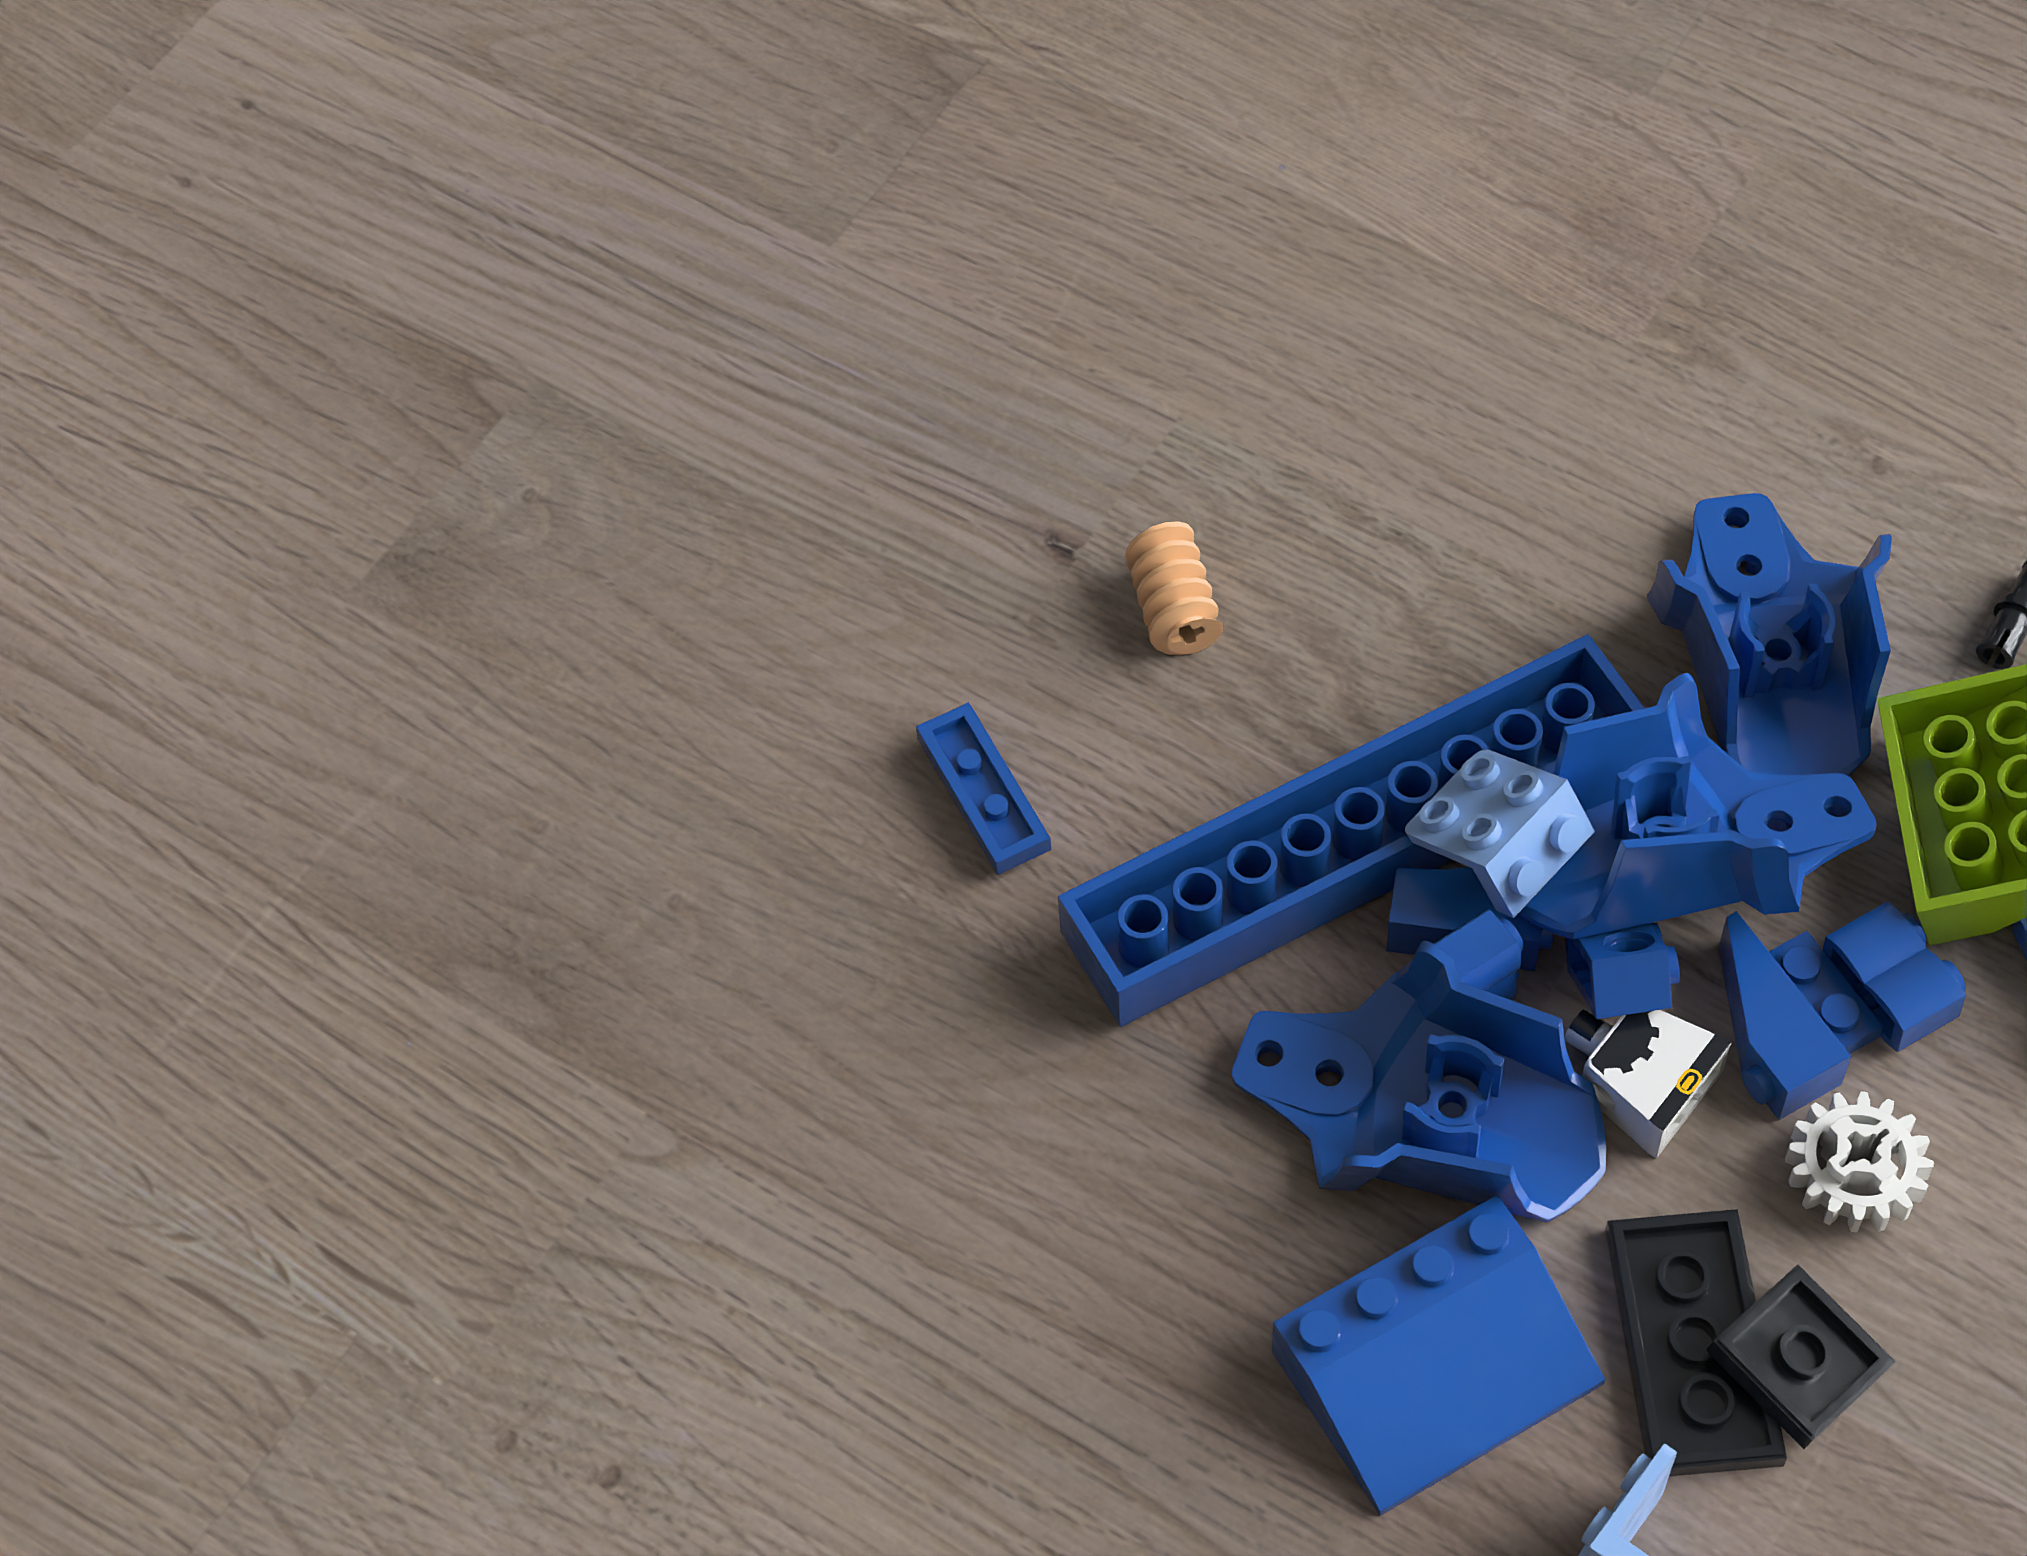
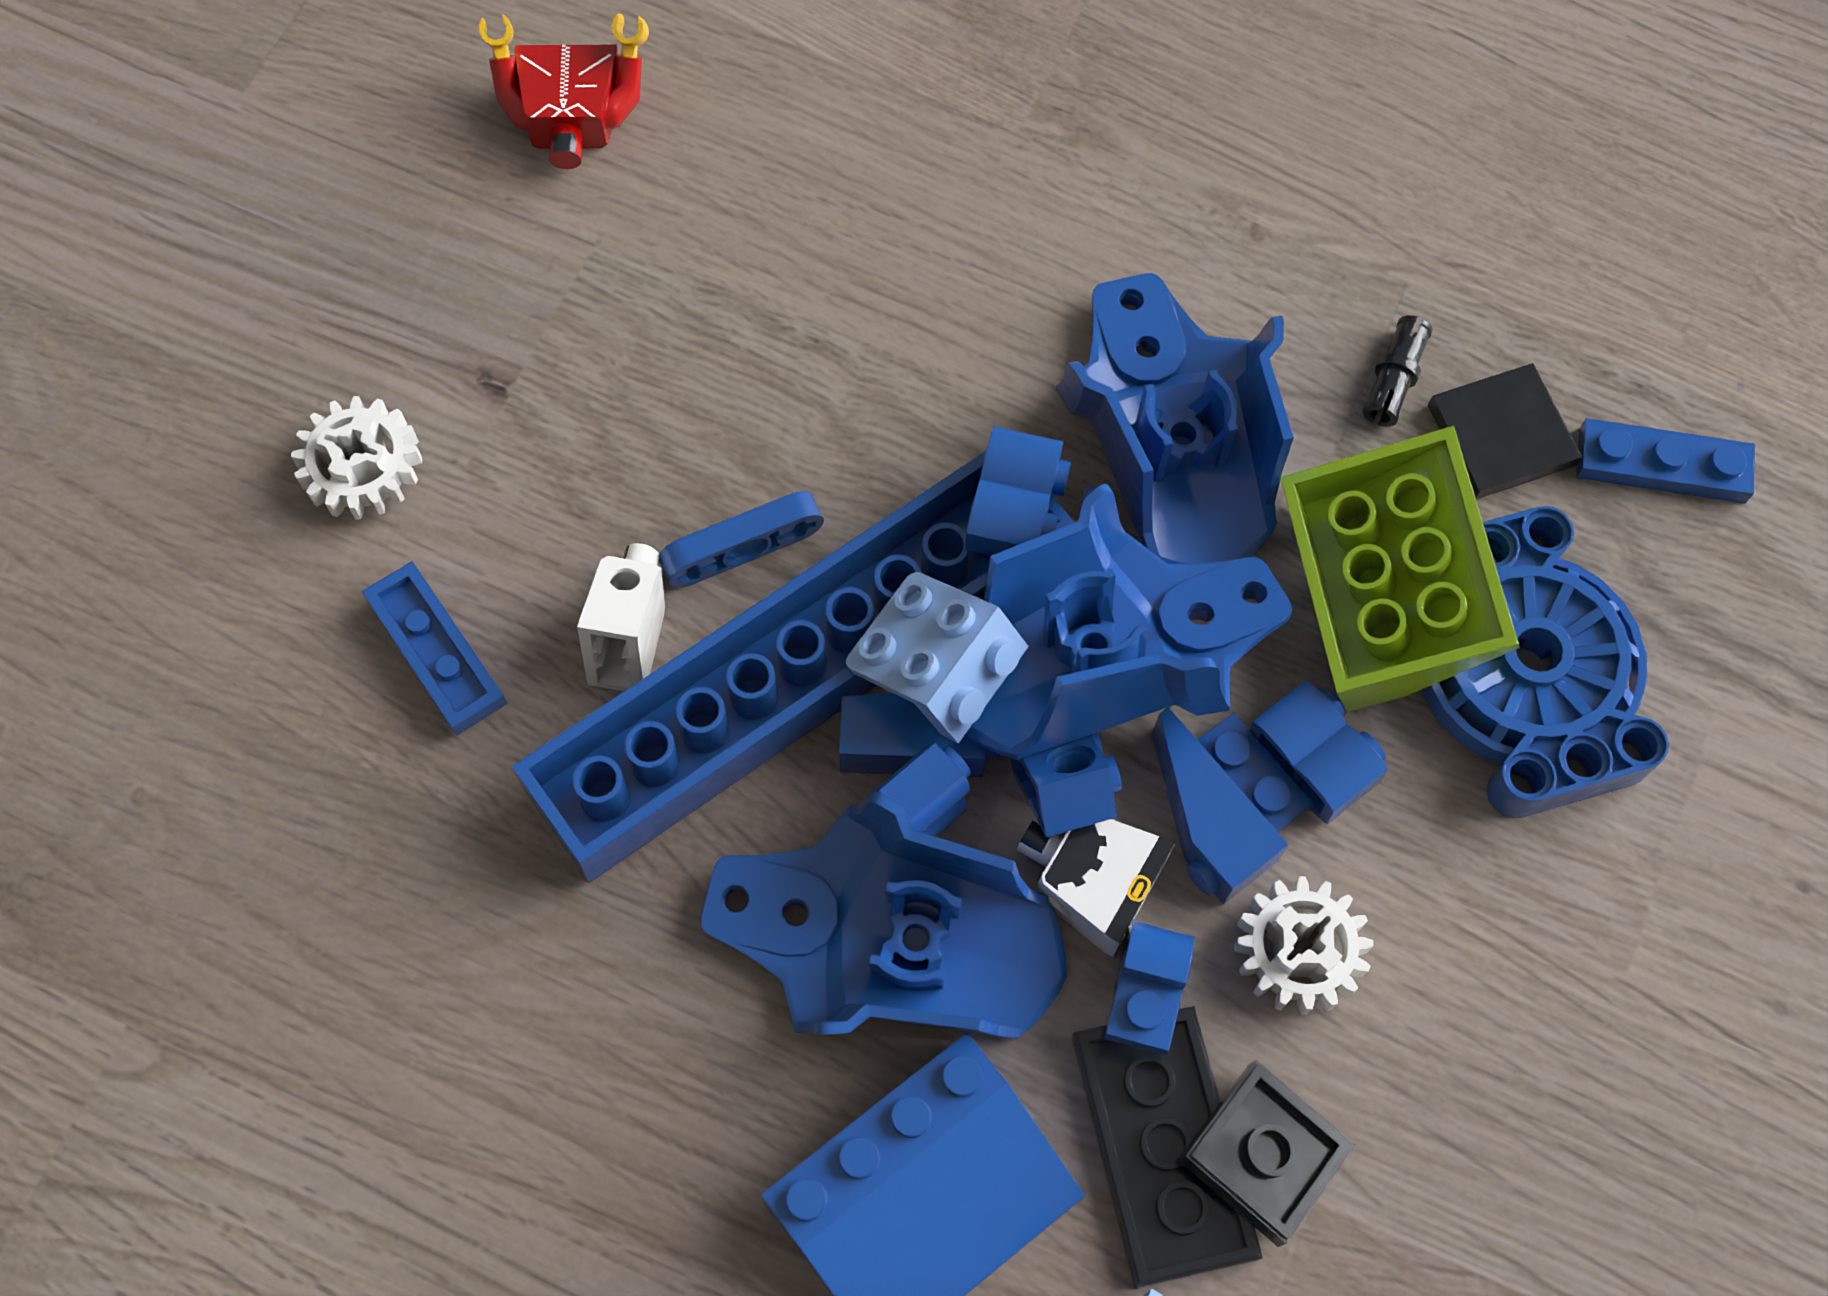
camera: 15 degrees left, 10 degrees up
(920, 601) = (356, 457): none -> white gear
(1163, 270) = (567, 92): none -> red torso
(1173, 589) = (603, 423): light nougat piece -> none
(1182, 752) = (622, 619): none -> white torso
(1304, 714) = (741, 539): none -> blue beam
(1595, 675) = (1016, 491): none -> blue brick
(1690, 1178) = (1149, 987): none -> blue brick

